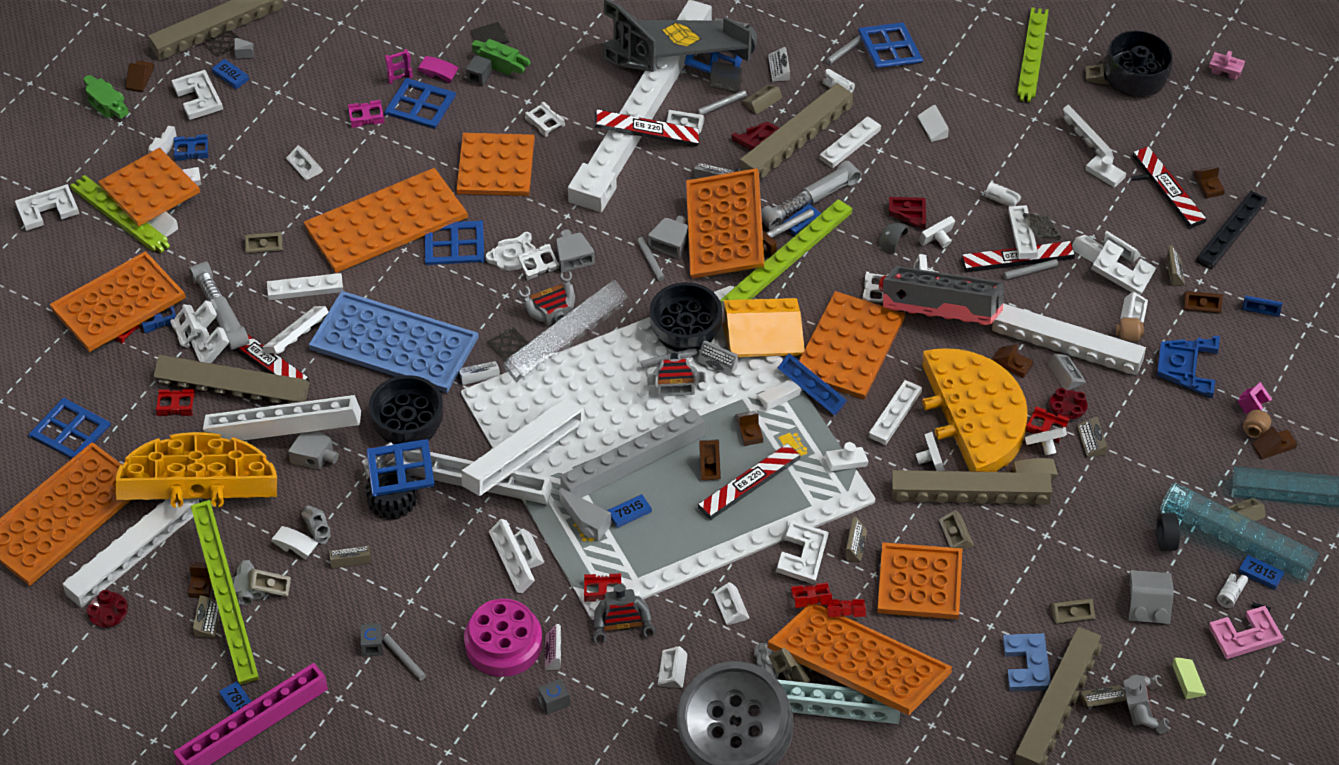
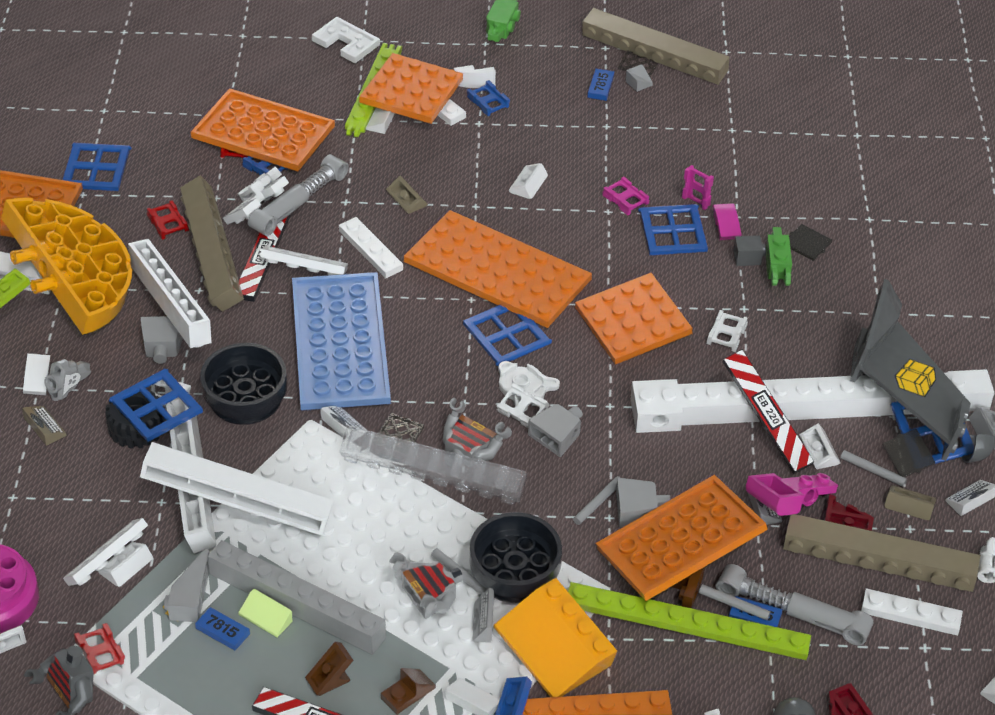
camera: 60 degrees right, 5 degrees down
(138, 75) = (547, 28): reddish brown slope -> none
(207, 97) = (567, 71): white plate -> none
(632, 480) = (266, 613): none -> yellowish green slope
(723, 152) = (788, 494): none -> dark pink plate

